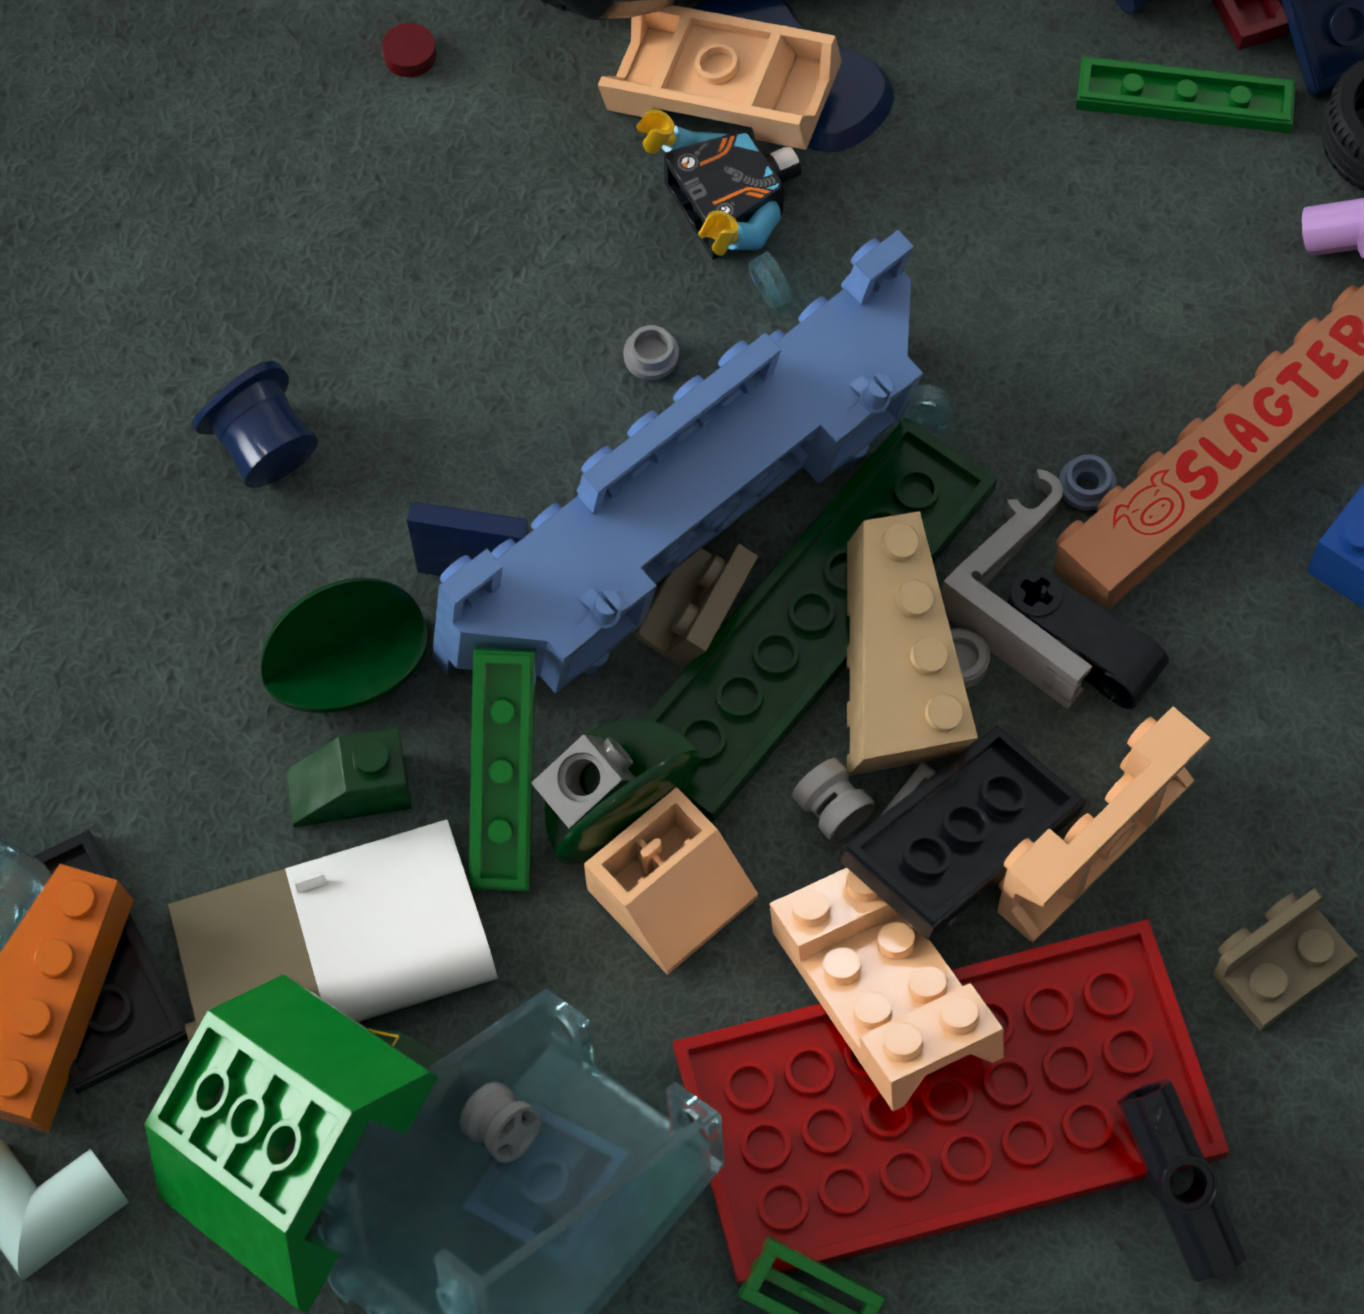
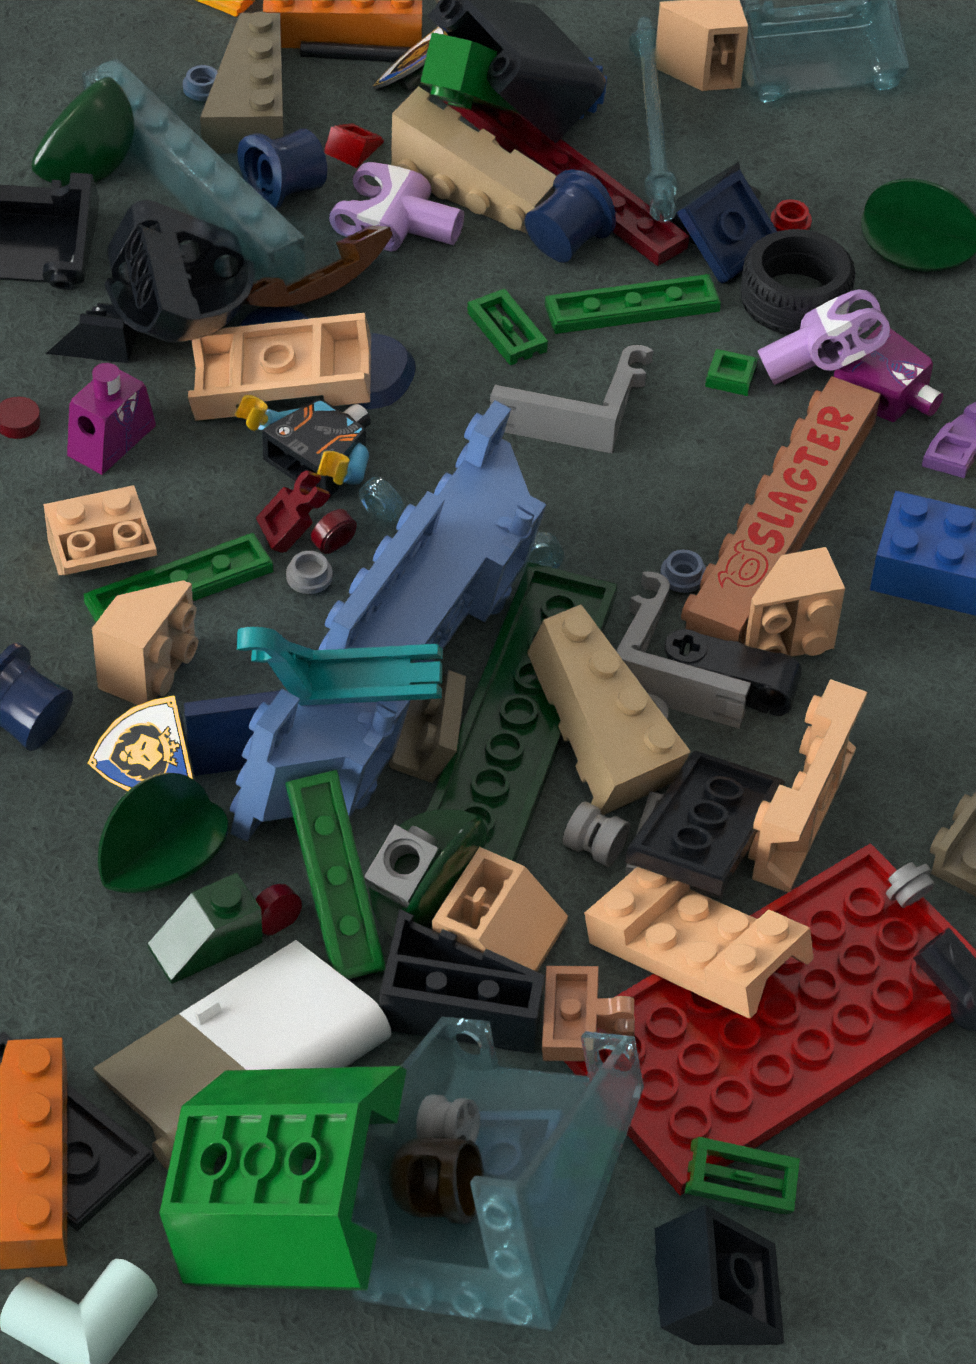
camera: 25 degrees left, 15 degrees down
(369, 531) = (143, 744): none -> shield
(420, 395) = (144, 641): none -> light nougat slope
(428, 235) = (98, 530): none -> light nougat slope
(435, 777) = (279, 908): none -> dark red tile
(458, 1190) = (434, 1178): none -> dark brown helmet
(499, 86) = (108, 418): none -> magenta torso
(502, 320) = (206, 571): none -> green tile
(566, 545) = (348, 673): none -> teal hinge
(580, 948) = (439, 977): none -> black wedge
(652, 270) = (287, 513): none -> dark red plate
(699, 307) = (333, 531): none -> dark red tile
(703, 1029) = (574, 1007): none -> nougat plate
(1026, 121) = (536, 340): none -> green tile
(1042, 242) = (572, 420): none -> light grey hinge
(1163, 996) = (910, 884): none -> light grey plate
(1187, 582) = (797, 605): none -> light nougat slope
(1265, 224) = (731, 372): none -> green tile

